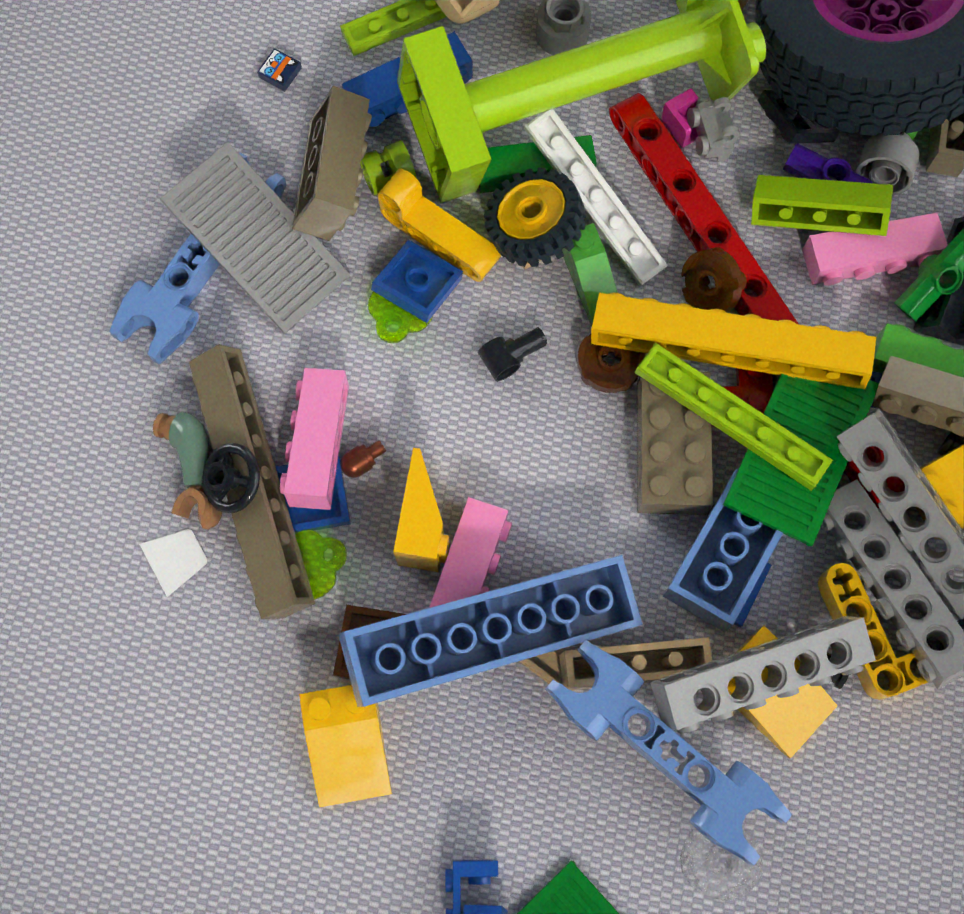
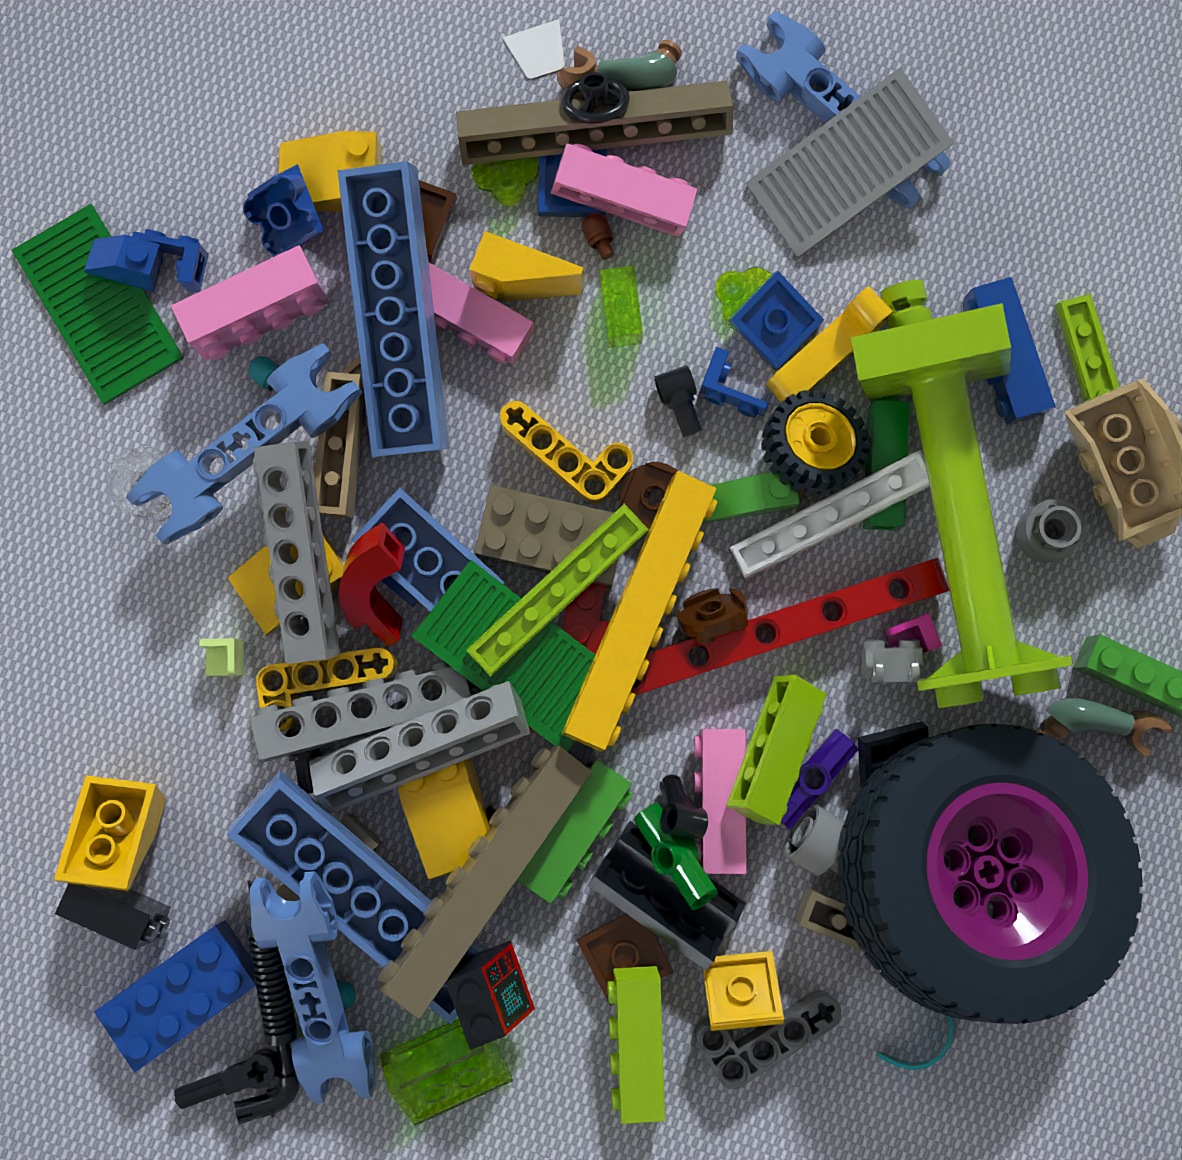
camera: 100 degrees right, 10 degrees up
(279, 69) = (1048, 223): tile -> none
(332, 164) = (915, 247): dark tan brick -> none
(398, 779) = (283, 212): none -> blue slope
(434, 420) = (621, 306): none -> clear neon green brick
(484, 326) = (719, 394): none -> blue bracket
(508, 787) = (250, 304): none -> bright pink brick
(572, 761) = (260, 369): none -> teal cylinder
(585, 452) = (563, 448): none -> yellow beam
(763, 598) = (368, 562): none -> red arch
(872, 741) = (224, 656): none -> yellowish green panel
(905, 274) = (679, 814): none -> black pin

